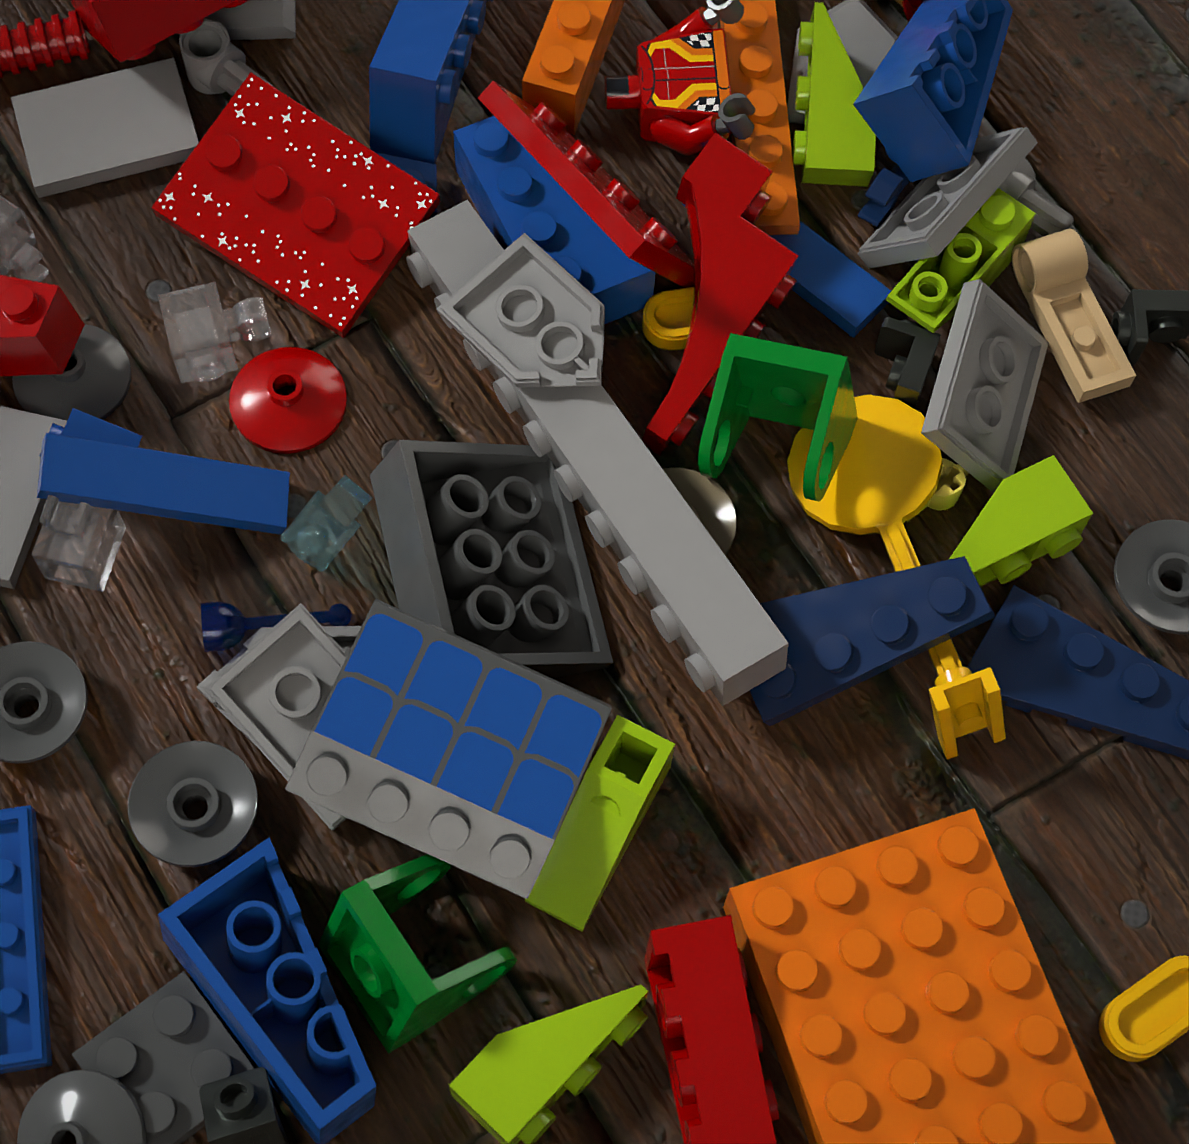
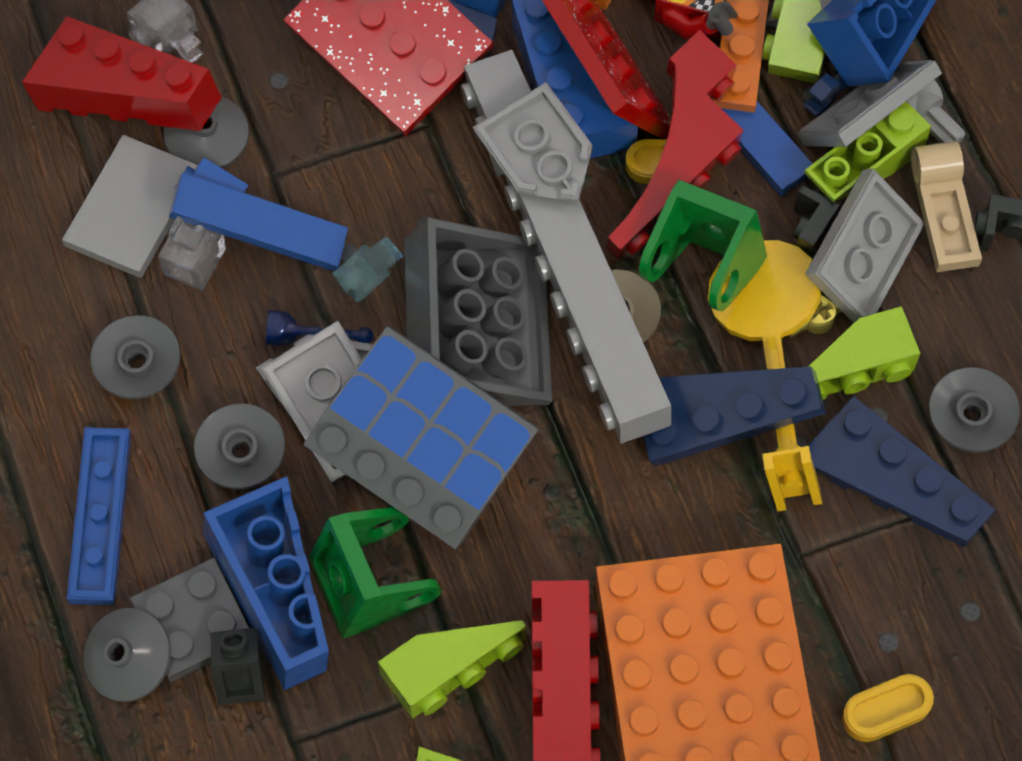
camera: 15 degrees right, 0 degrees up
(203, 332) = (304, 116): clear brick -> none
(294, 420) = (362, 190): red dish -> none
(601, 821) = (519, 507): lime slope -> none

